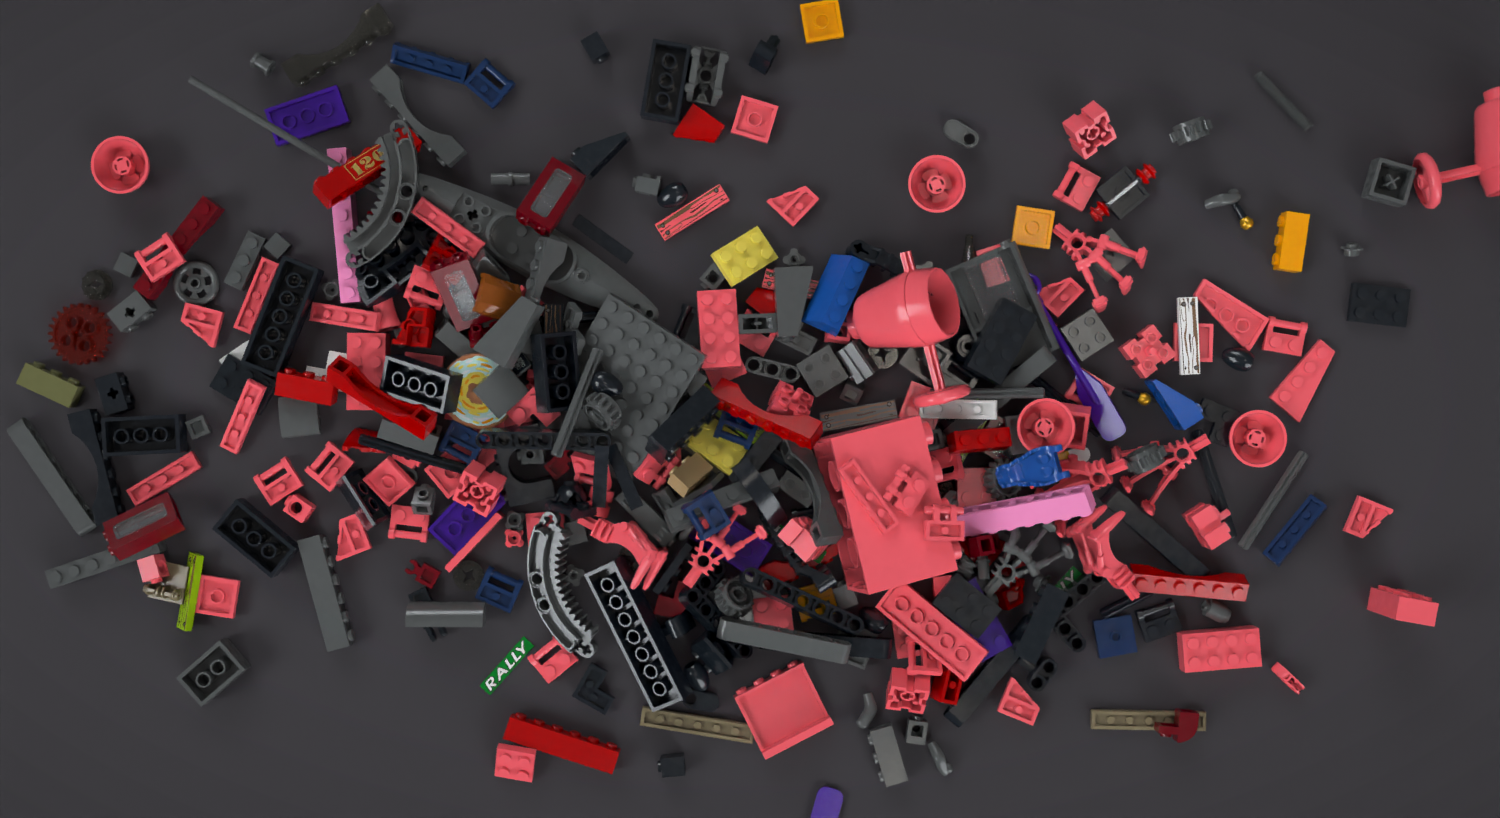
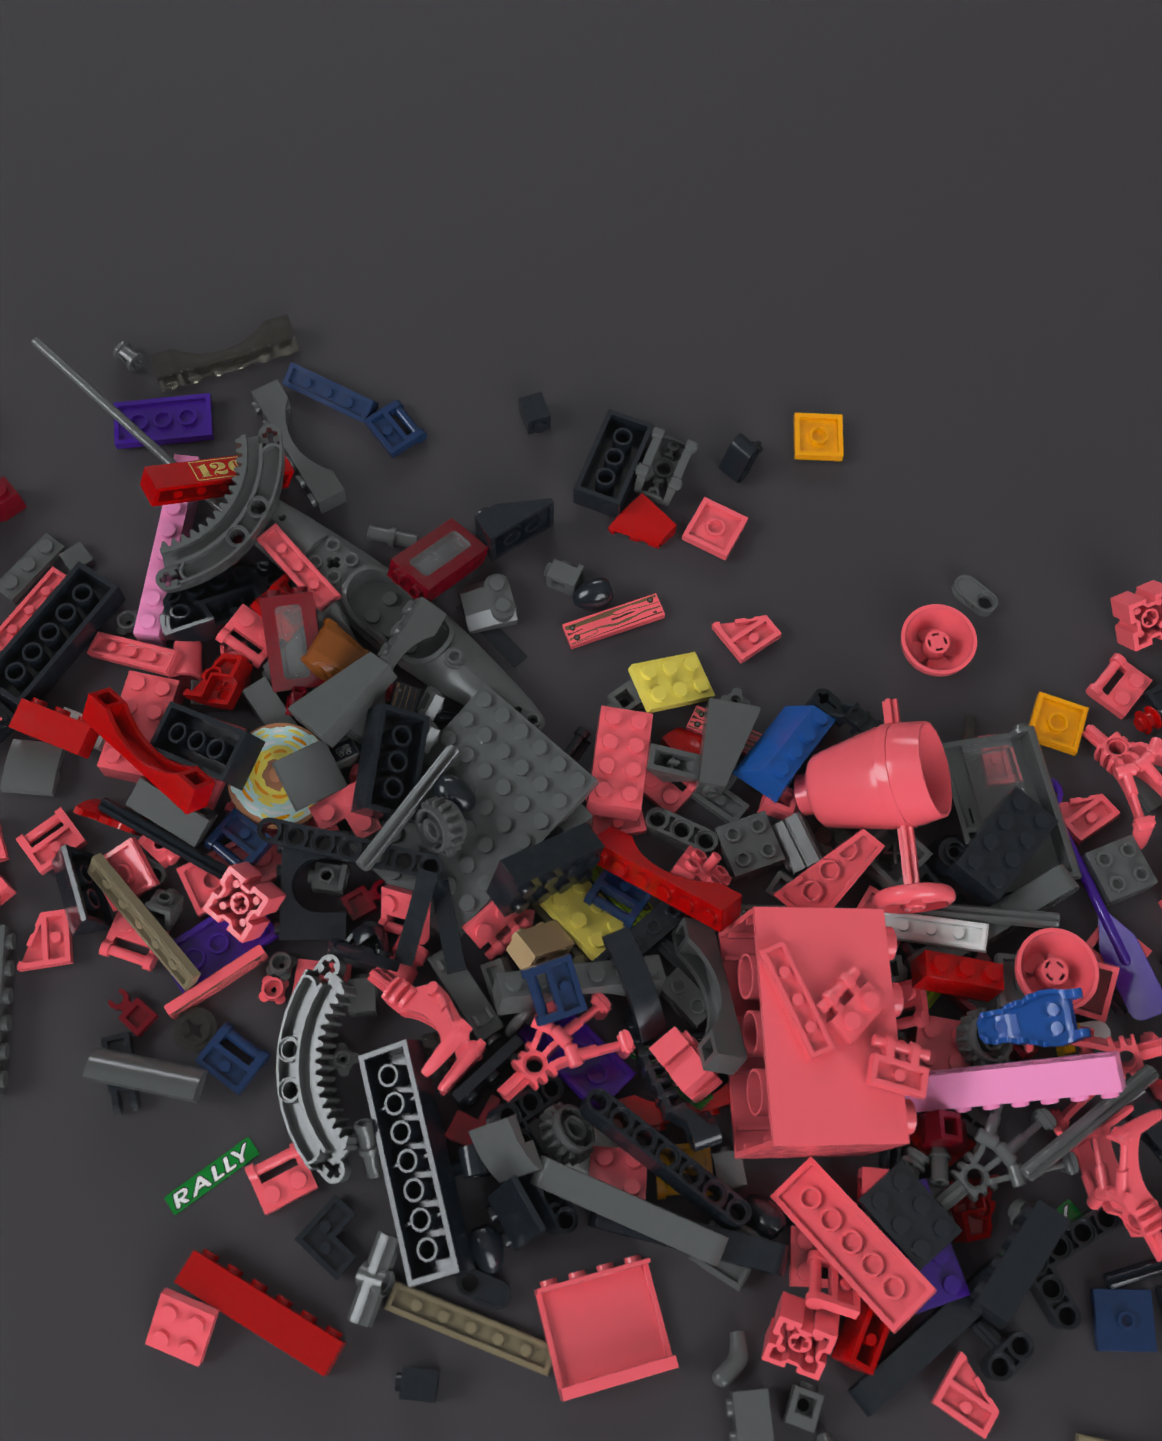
camera: 10 degrees right, 20 degrees down
(412, 514) = (143, 922): none -> dark tan tile
(595, 219) = (488, 604): none -> dark grey slope
(605, 630) = (368, 1147): none -> dark grey pin
(629, 709) = (374, 1279): none -> dark grey piece
(695, 619) = (504, 1149): none -> dark grey slope
(879, 390) = (832, 875): none -> coral wing
(1075, 528) = (1088, 1123): none -> dark grey axle

